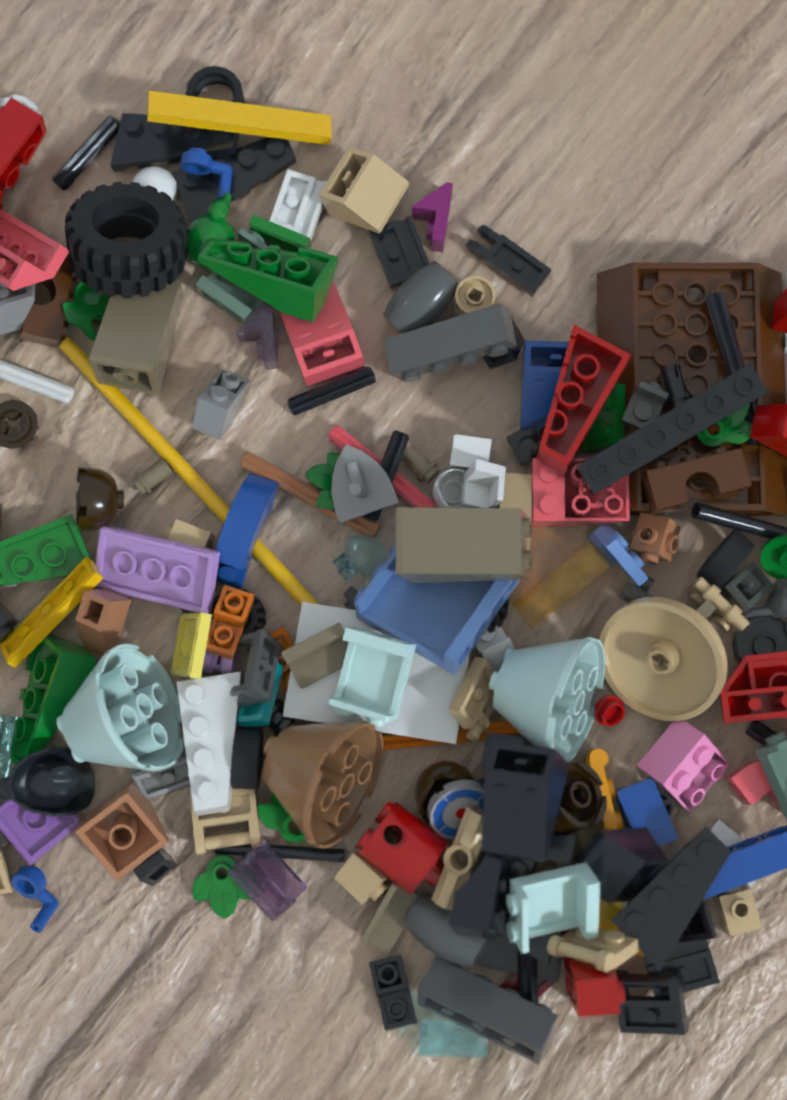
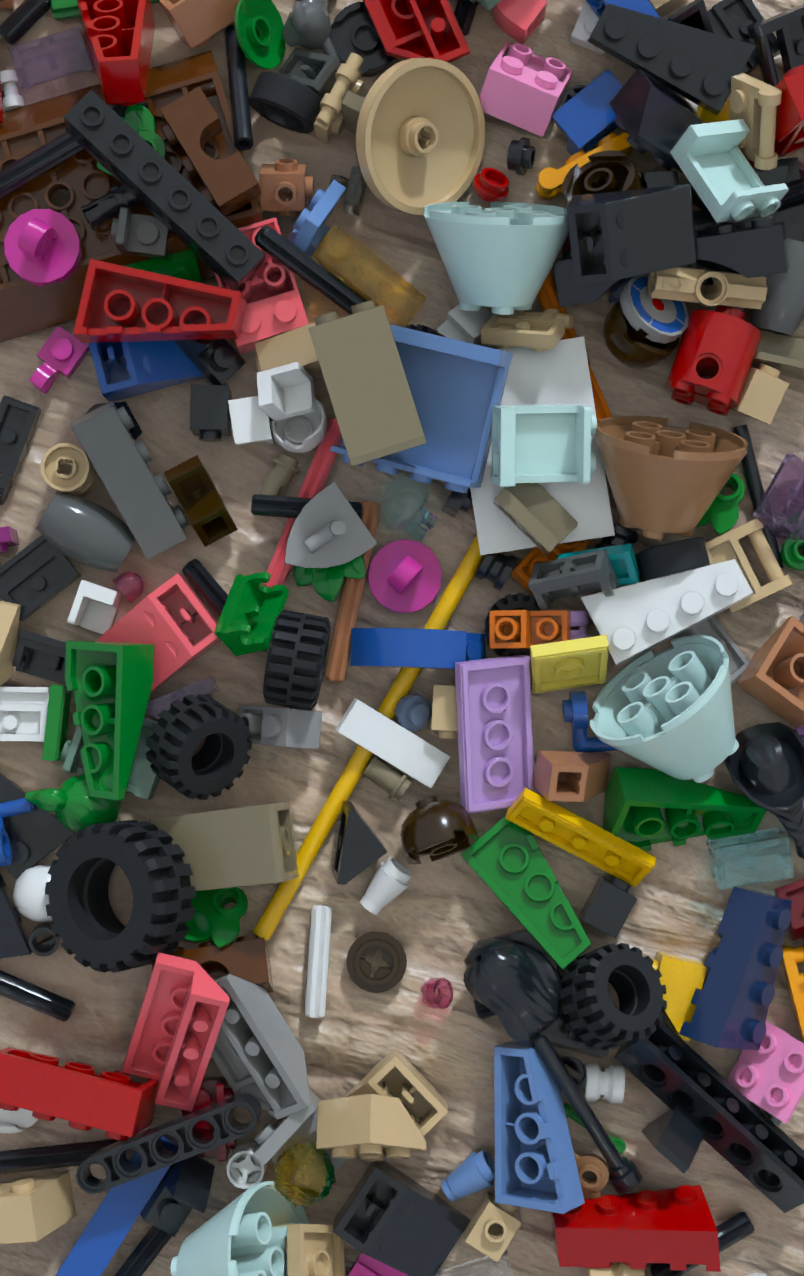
camera: 115 degrees left, 5 degrees up
(69, 450) = (387, 883): none -> white cone
(106, 436) = (355, 846): none -> black slope
(113, 176) = (46, 946): none -> black hinge
(153, 641) = (576, 711): none -> blue plate
(177, 487) = (392, 743): none -> white tile
(197, 511) = (413, 712): none -> sand blue plate
(239, 328) = (179, 734): none -> black tyre
(264, 429) = (296, 660): none -> black tyre
(288, 614) = (496, 569): none -> black wheel
(308, 540) = (405, 576): none -> dark pink tile
(313, 405) = (250, 613): none -> green hinge
(339, 240) = (40, 656): none -> black hinge
(362, 291) = (94, 607): none -> white panel
(370, 322) = (130, 585): none -> clear pink hinge
(417, 396) = (200, 500): none -> dark brown brick
(489, 424) = (210, 412): none -> black brick
(567, 318) = (61, 355): none -> dark pink plate
(573, 538) = (307, 269): none -> black axle
(626, 743) = (521, 156): none -> black plate
(657, 327) = (43, 247): none -> dark pink tile

